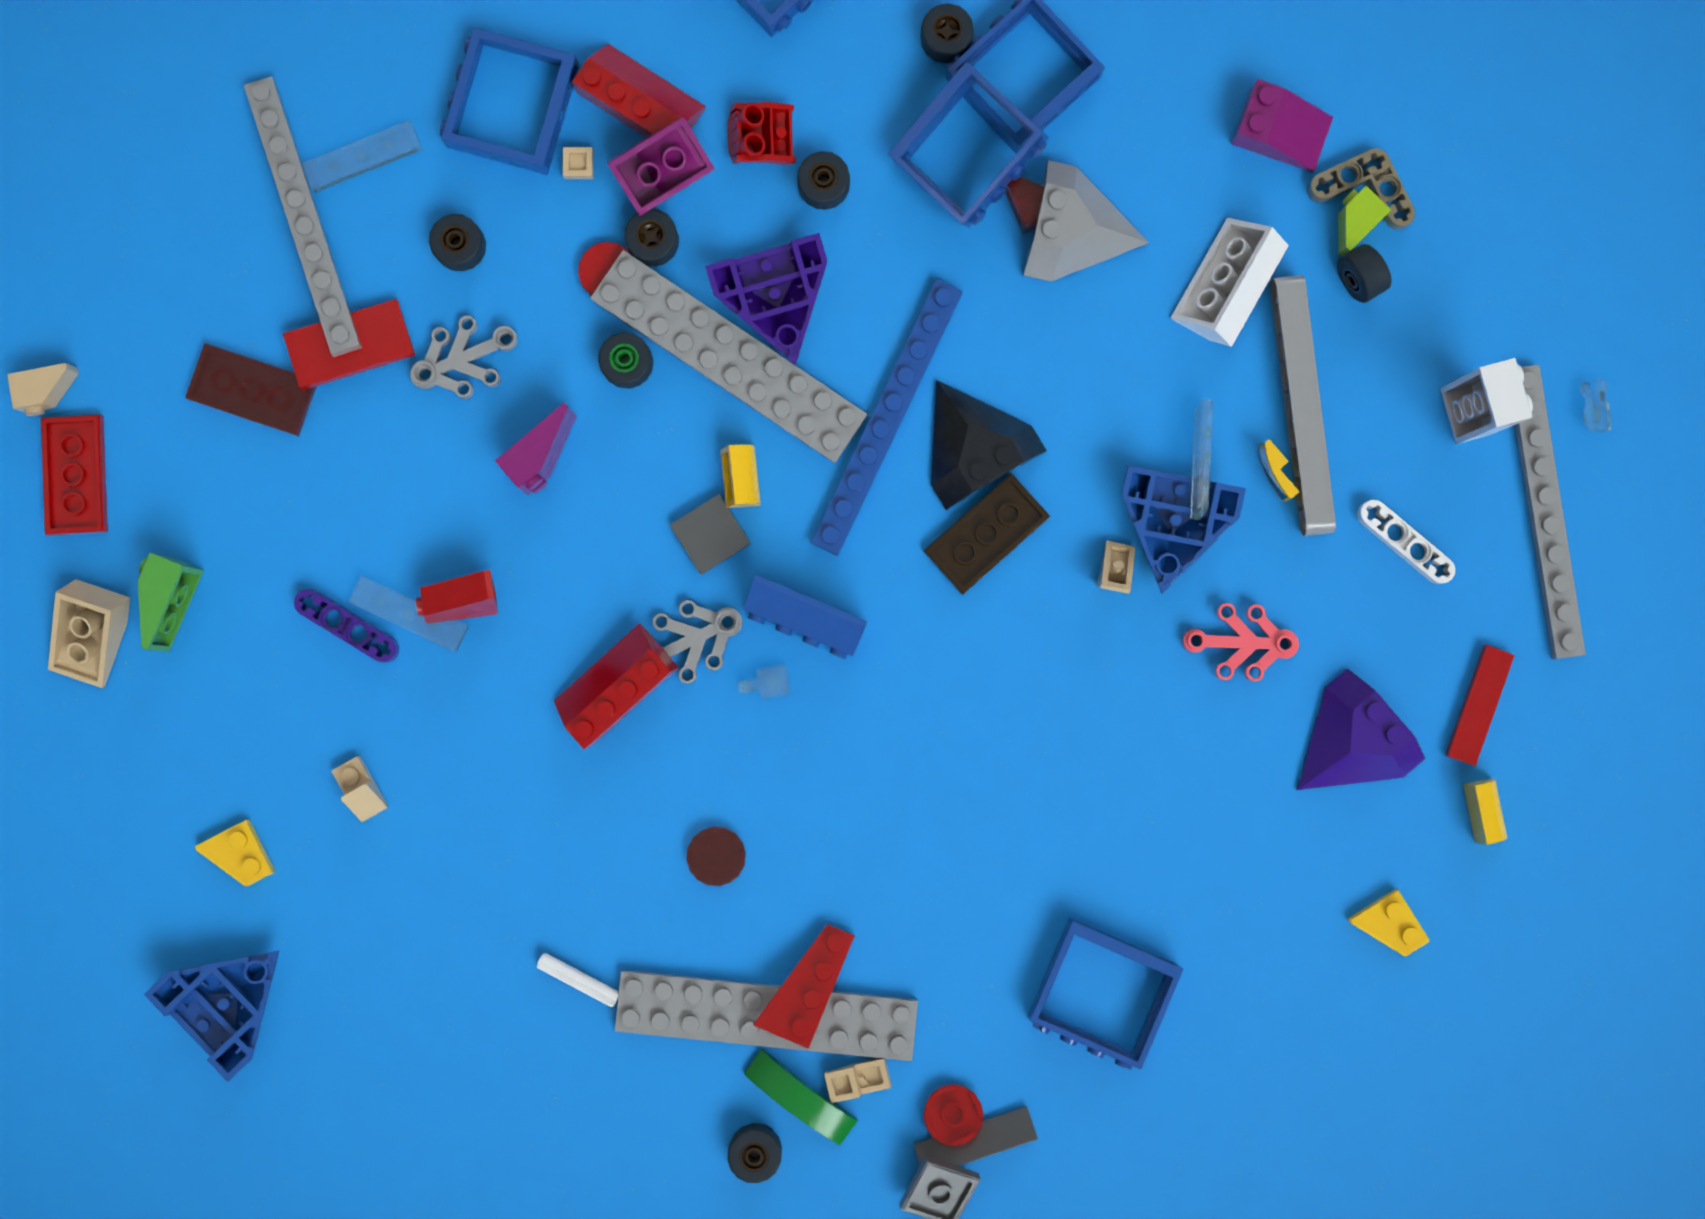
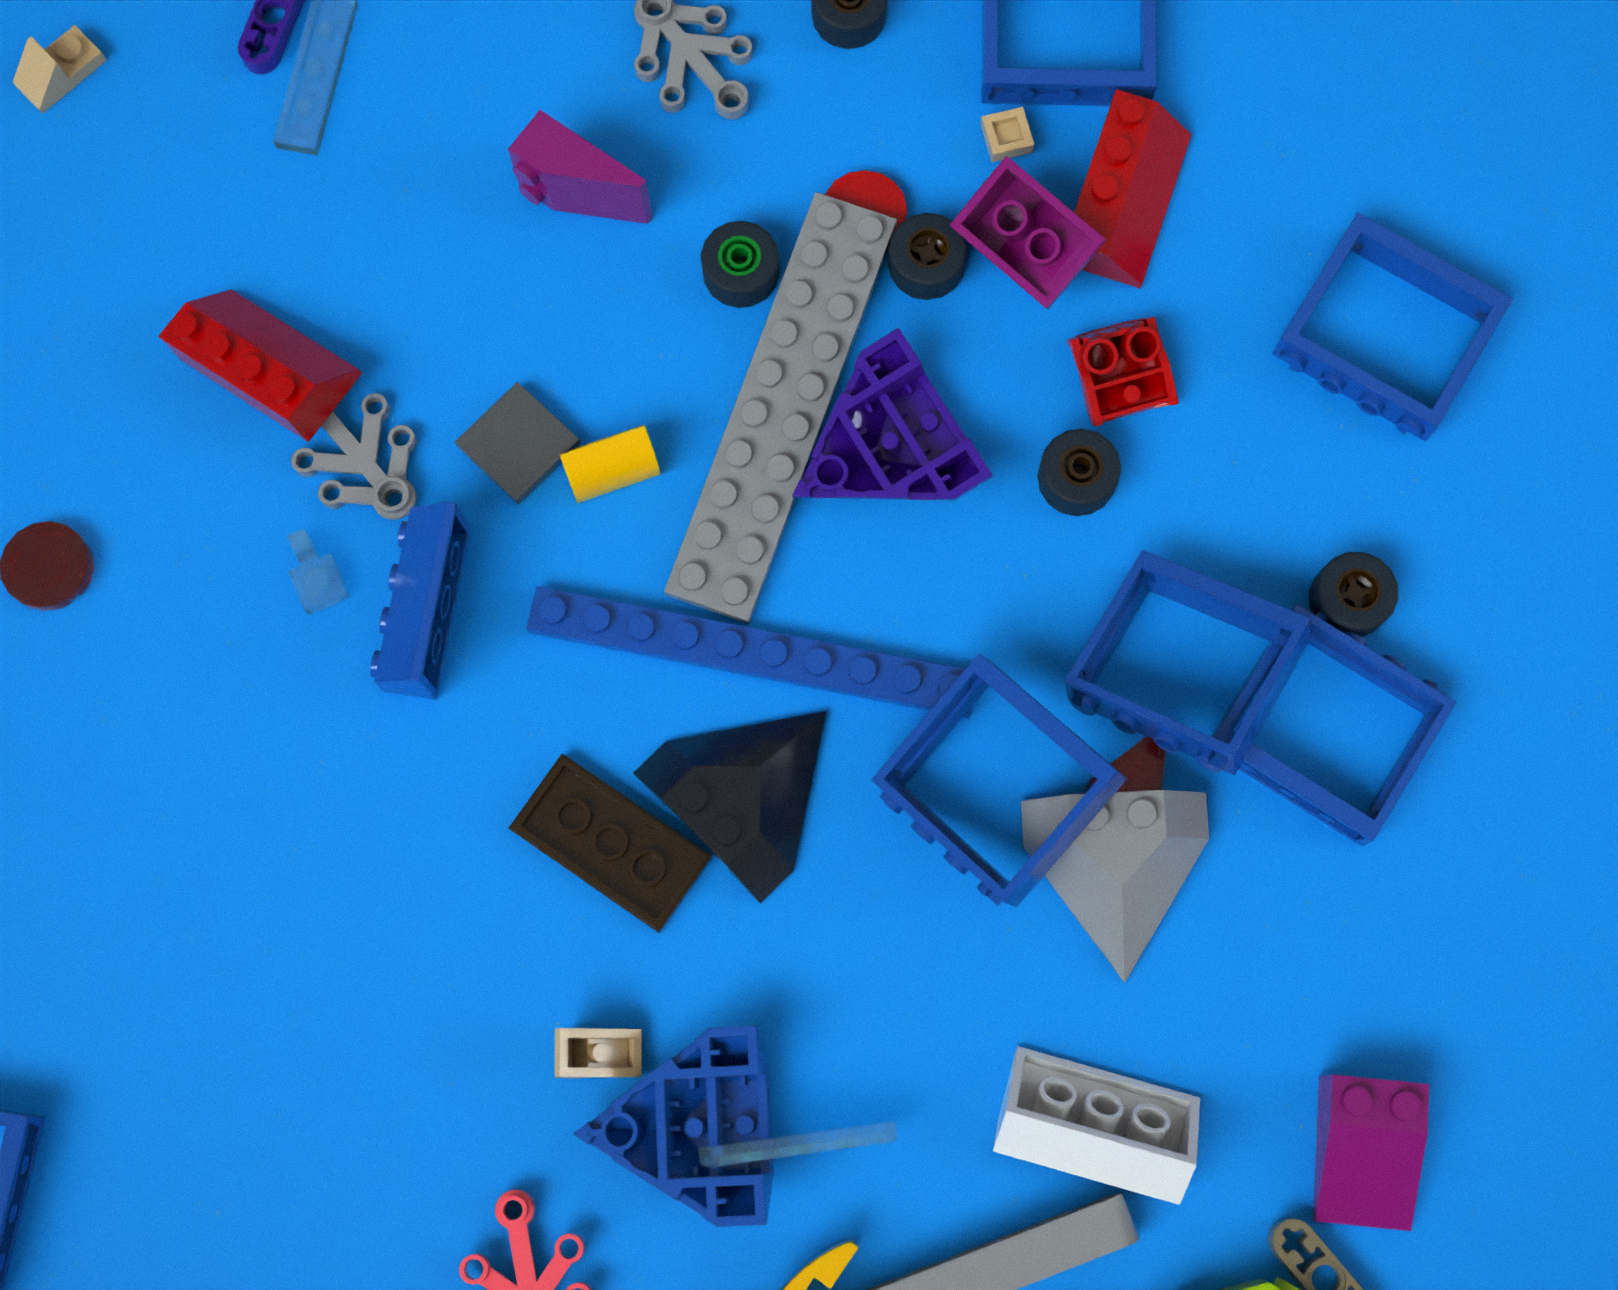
camera: 80 degrees right, 10 degrees down
(458, 598) = (343, 124): red slope -> none
(1031, 330) = (931, 732): none -> blue window

